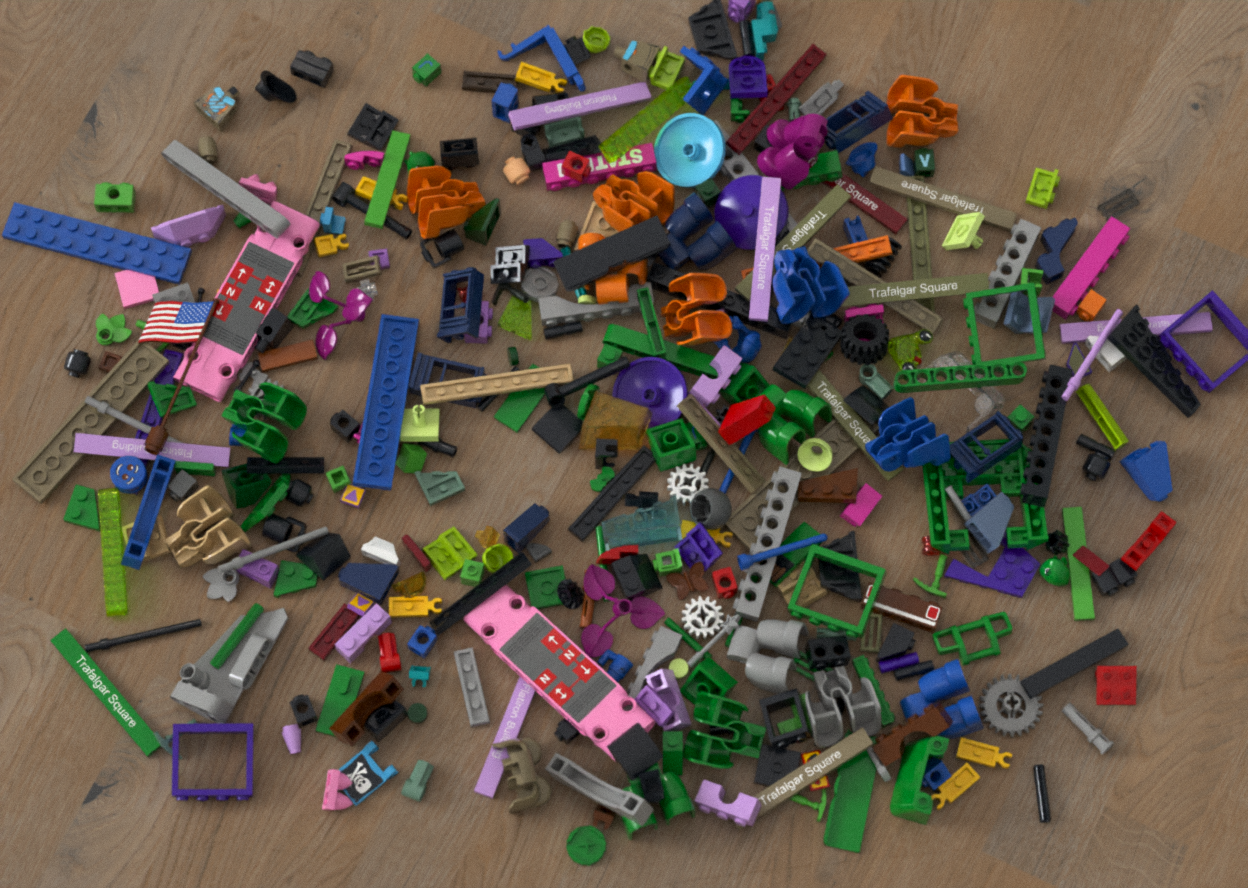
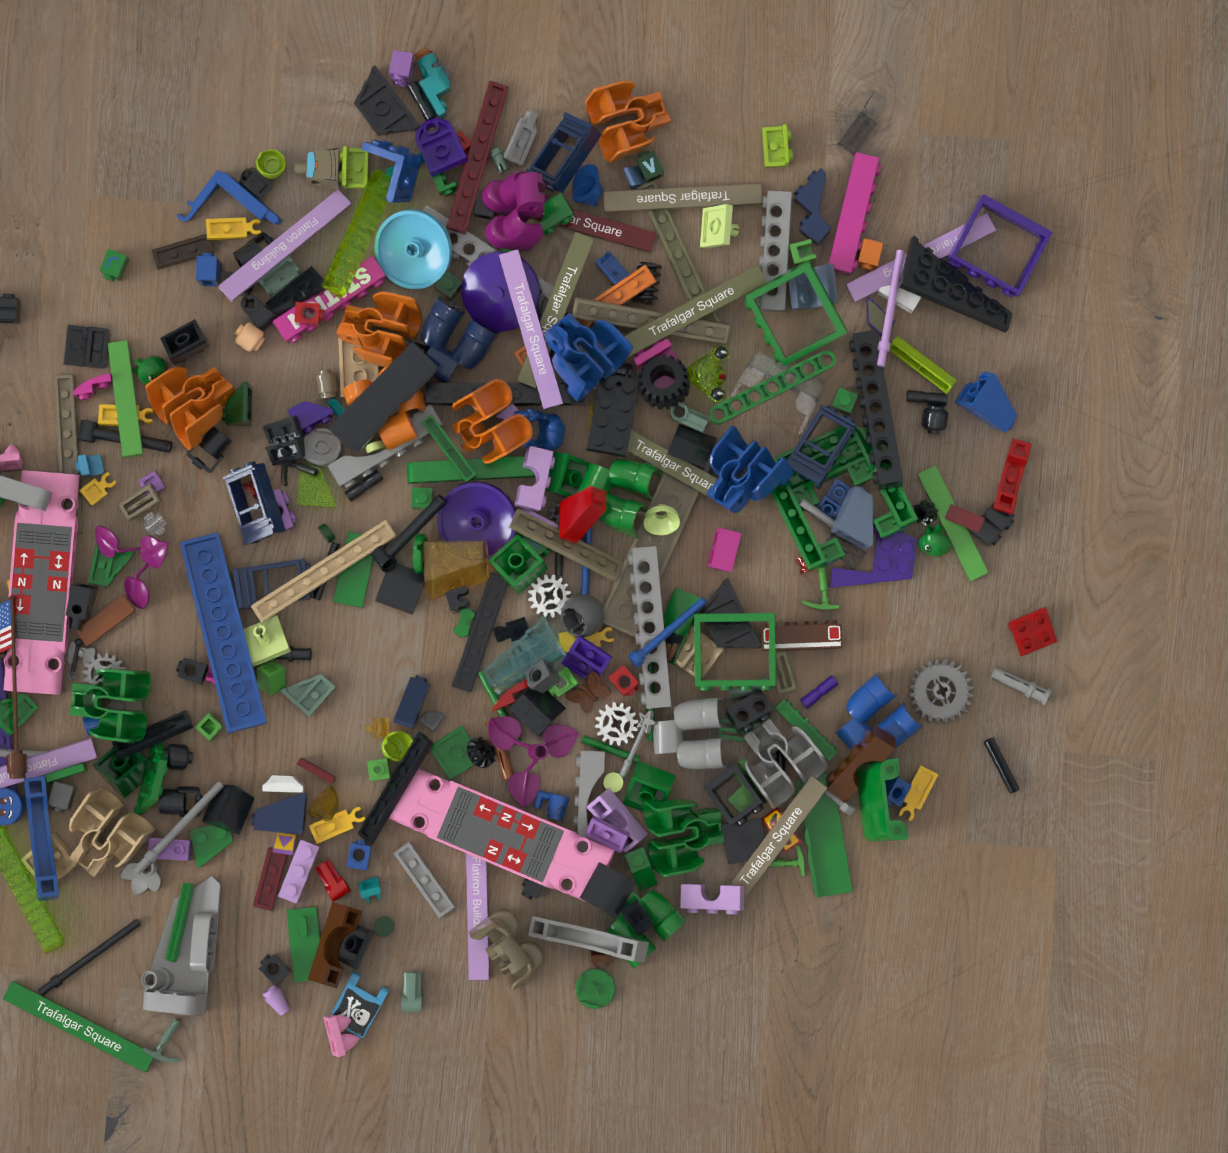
camera: 20 degrees left, 15 degrees up
(221, 794) = (200, 1023): dark purple window -> none
(353, 496) = (231, 739): tile -> none
(449, 553) = (347, 756): lime slope -> none
(652, 546) = (542, 676): none -> dark grey brick
(831, 488) = (690, 546): reddish brown wing -> none
(896, 643) = (810, 675): black slope -> none
(911, 671) = (838, 692): black piece -> none
(959, 646) = (899, 631): green bar -> none
(981, 753) = (930, 750): yellow plate -> none
(1074, 663) = (985, 627): black tile -> none

